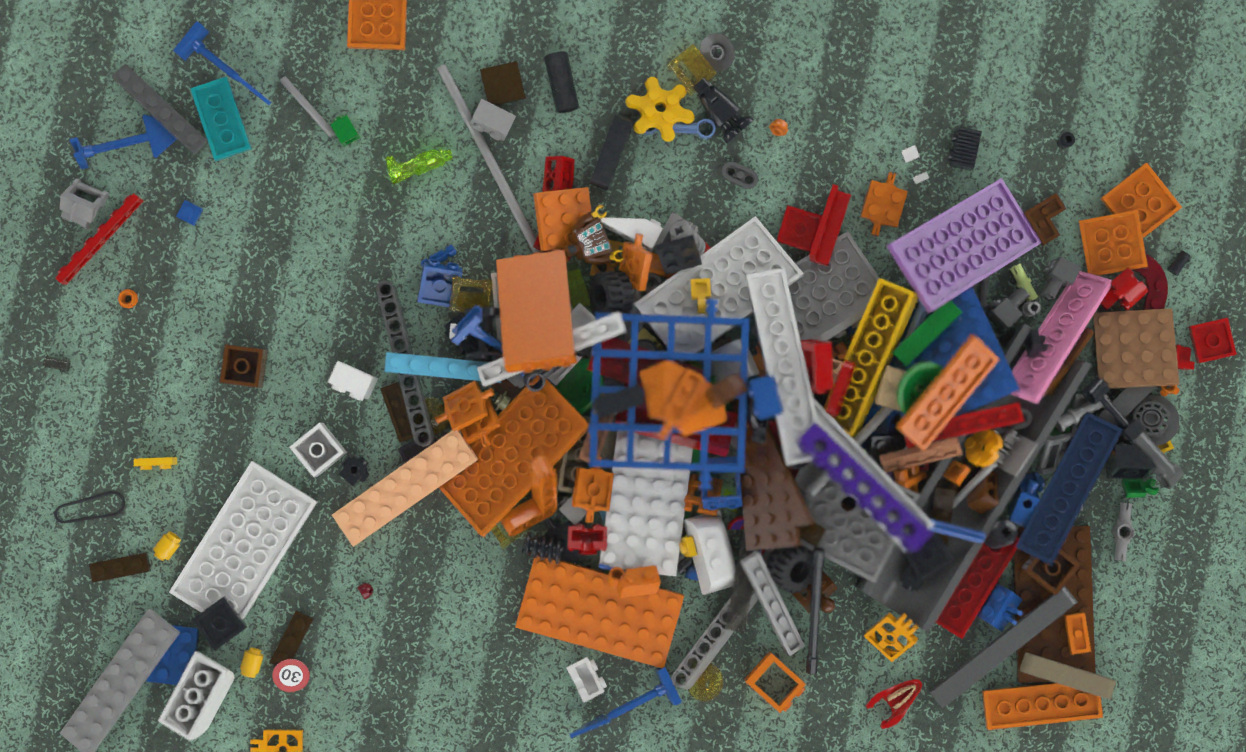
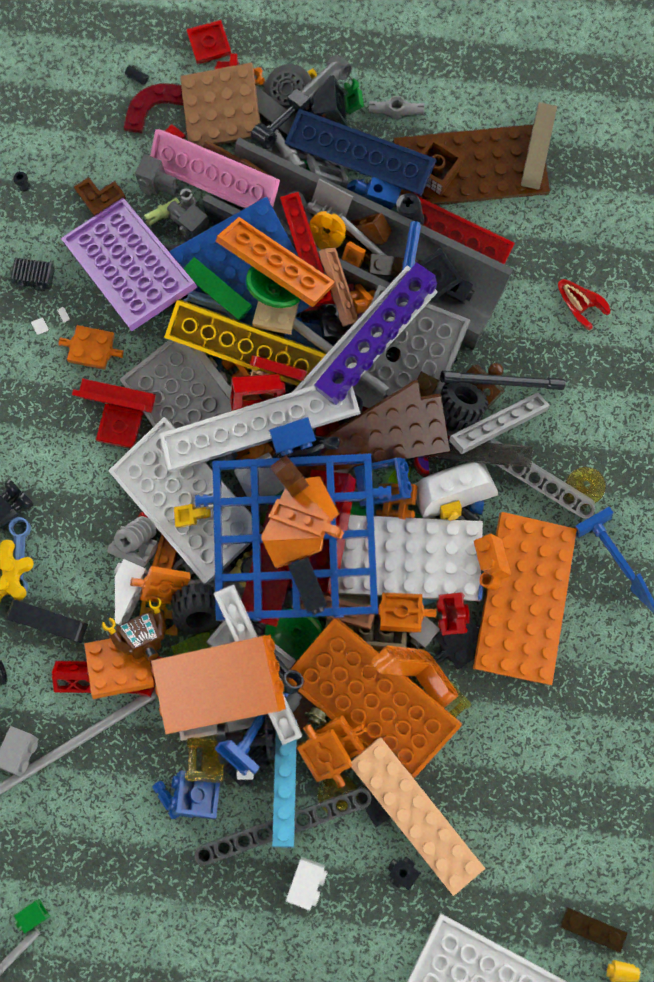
camera: 90 degrees left, 10 degrees down
(290, 675) = (631, 927): sticker -> none
(318, 449) = (384, 916): white brick -> none
(365, 590) = (530, 850): dark red hinge -> none
(397, 410) = (335, 830): dark brown plate -> none
(420, 164) = (68, 831): clear neon green piece -> none
(543, 548) = (466, 660): black piece -> none
(586, 679) = (598, 605): white cylinder -> none
(679, 254) = (150, 540): black plate -> none
(740, 174) = (66, 489): dark grey plate -> none
(760, 668) = (567, 433): orange window -> none
(779, 127) = (16, 453): orange plate -> none
(902, 628) = (510, 298): light orange piece -> none
(1000, 607) = (480, 211): blue brick -> none
(1002, 647) = (519, 207): dark grey beam -> none
(1034, 344) = (221, 190): black tile -> none
(1038, 705) = (570, 173): orange plate -> none
(1077, 633) = (497, 139): orange plate -> none
(1113, 243) = (120, 131): orange plate -> none
(1128, 289) = (163, 114): red cylinder -> none
(1143, 193) = (80, 111): orange plate -> none

